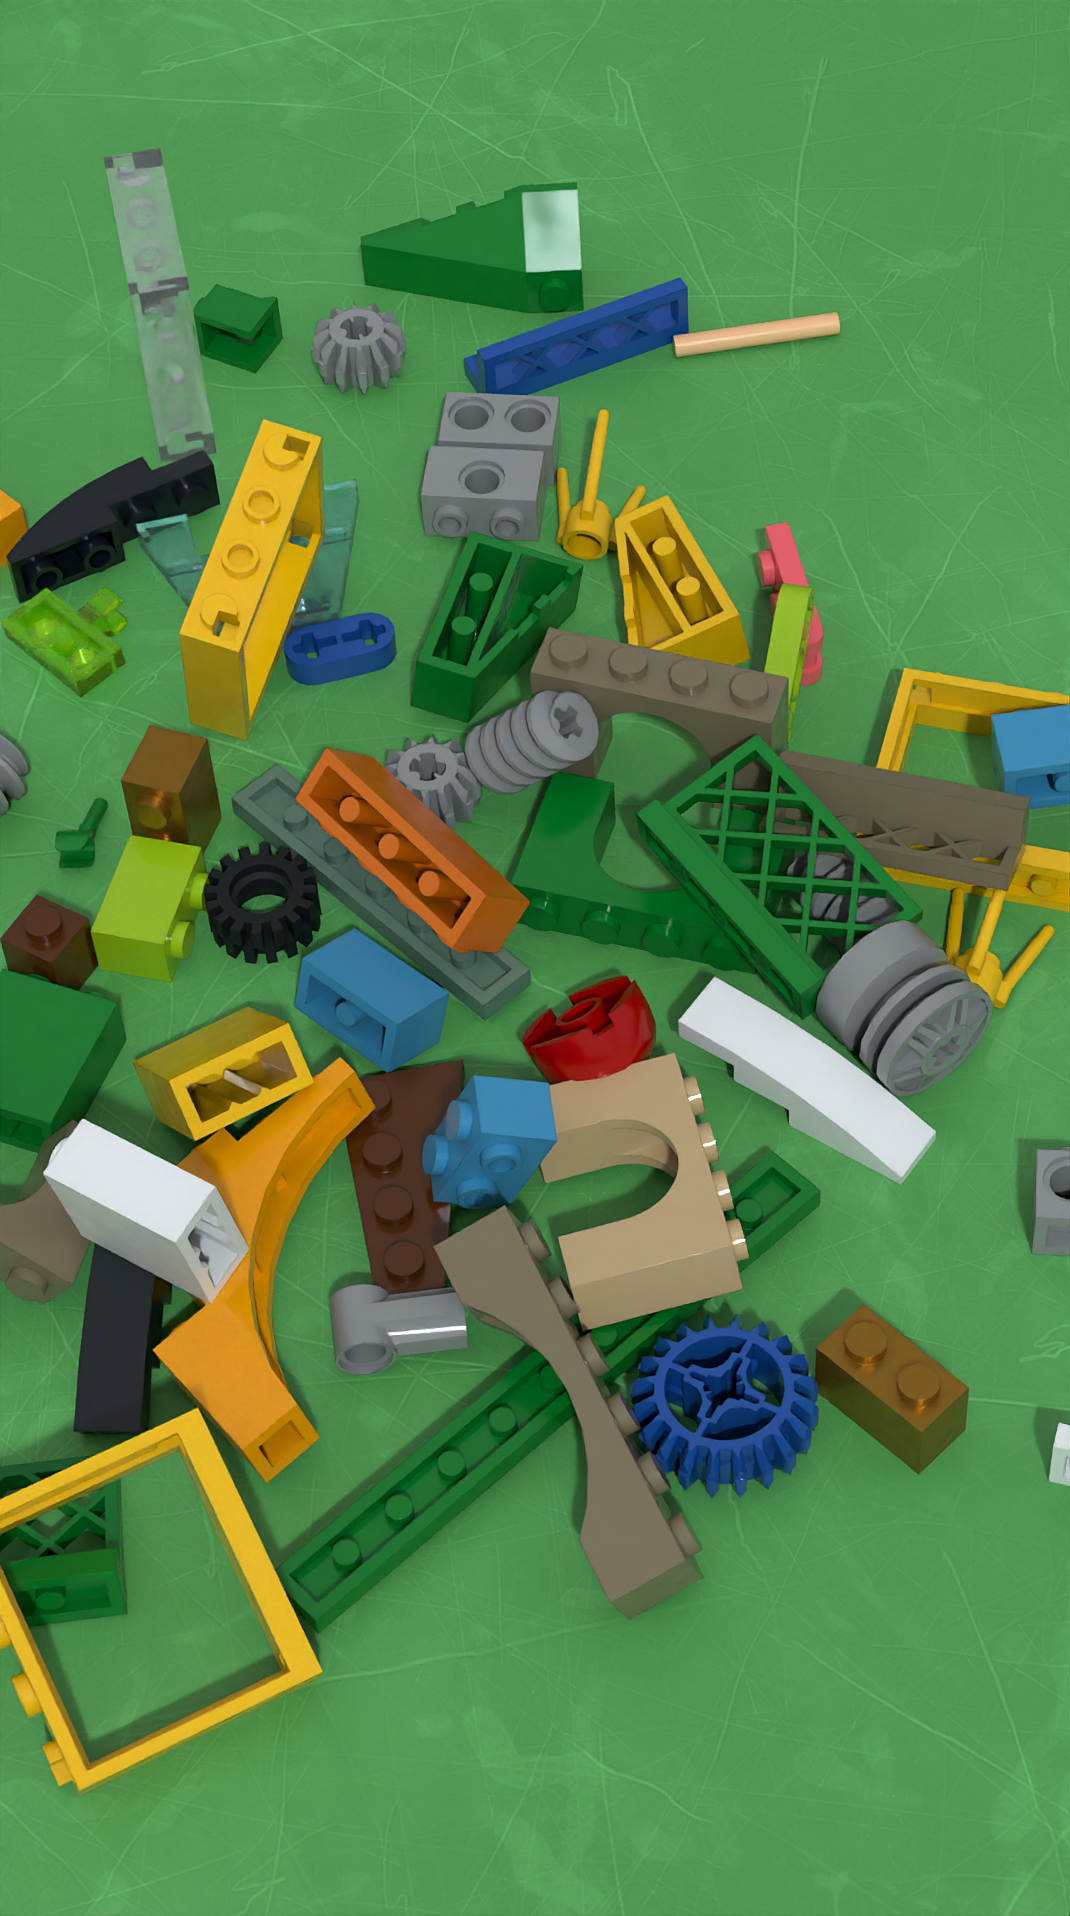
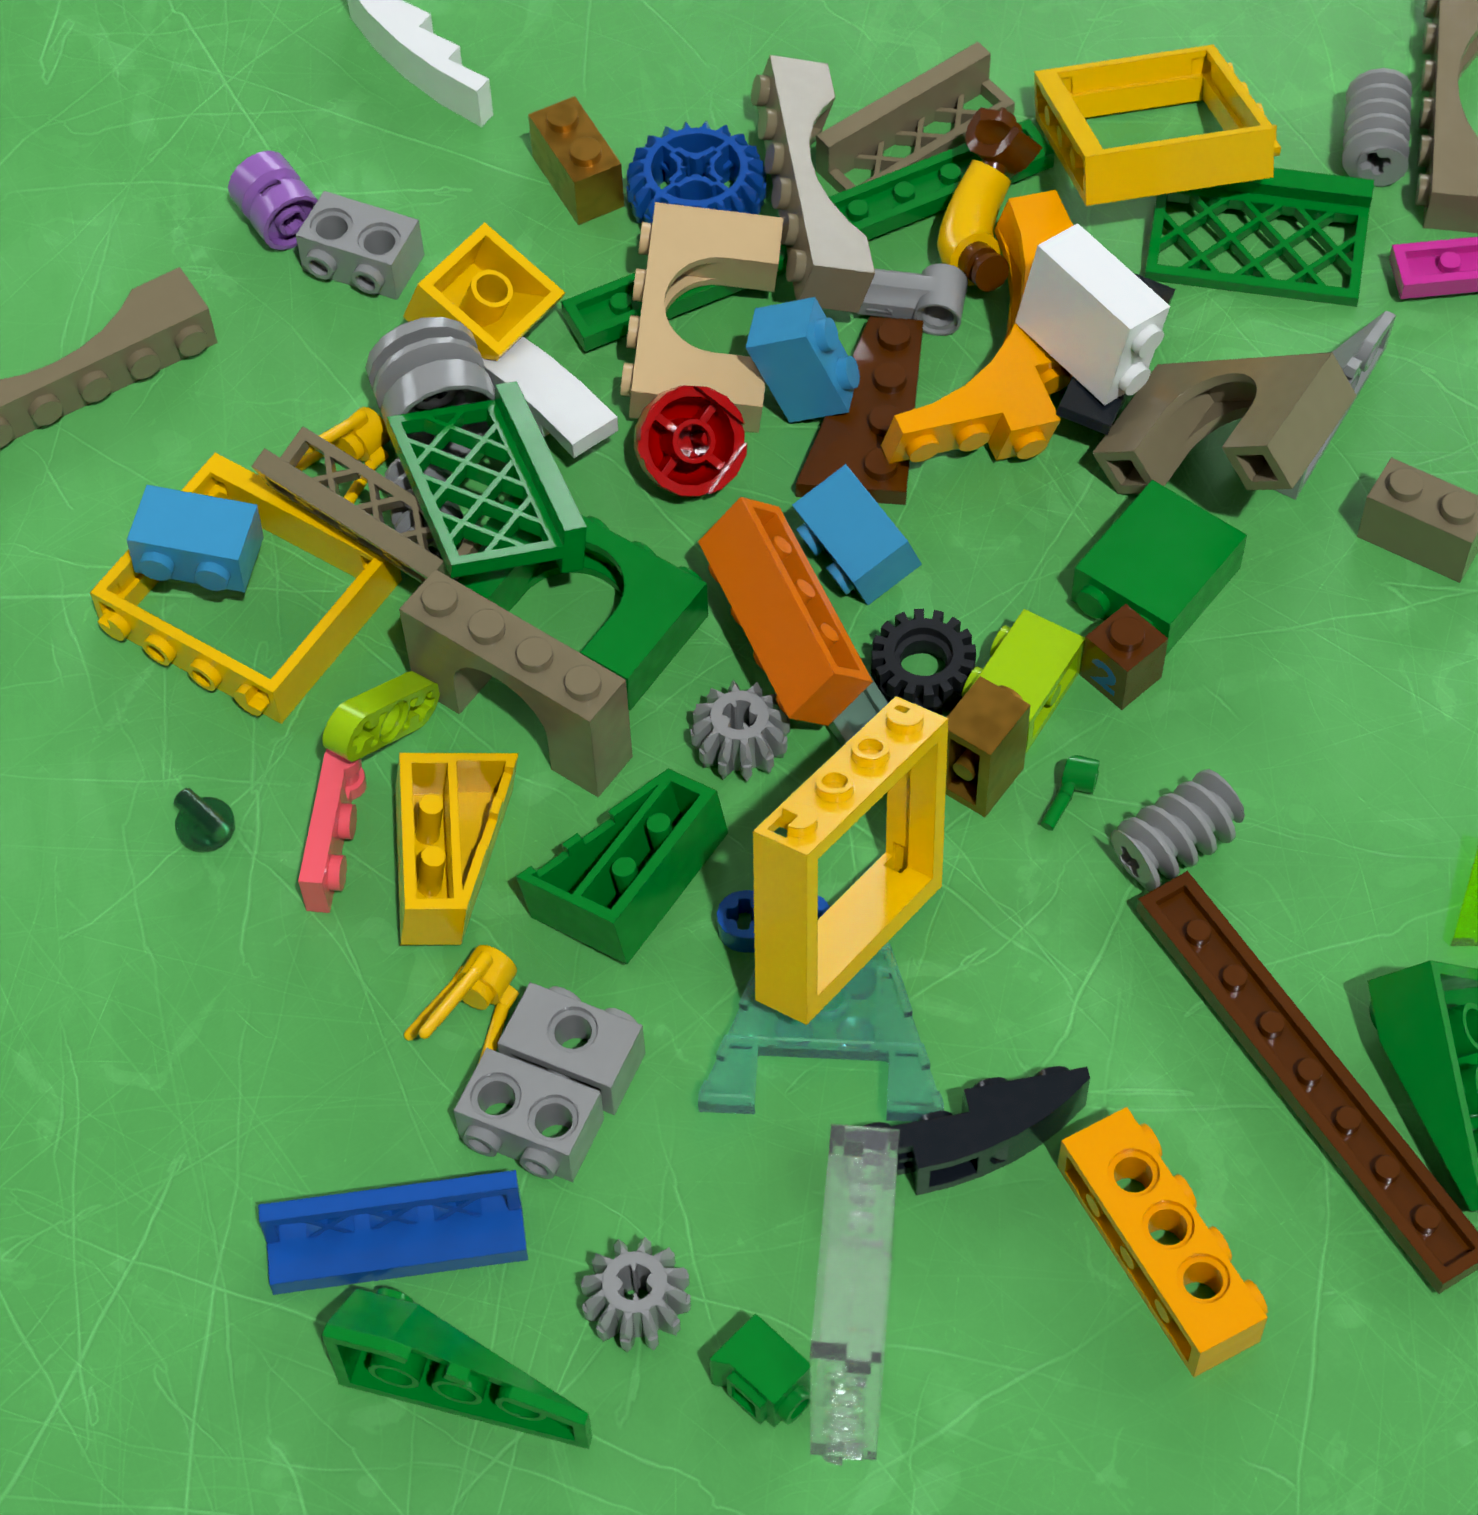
camera: 165 degrees left, 5 degrees up
(68, 641) = (1043, 1000): clear neon green plate -> none
(223, 1072) = (1002, 475): yellow brick -> none
(351, 1415) = (969, 220): none -> piece
(480, 1599) = (902, 116): none -> dark tan fence
(532, 741) = (650, 679): light grey piece -> none
(756, 334) = (187, 1196): light nougat bar -> none
(909, 1148) = (488, 291): none -> yellow slope
(916, 586) = (203, 821): none -> clear green plate

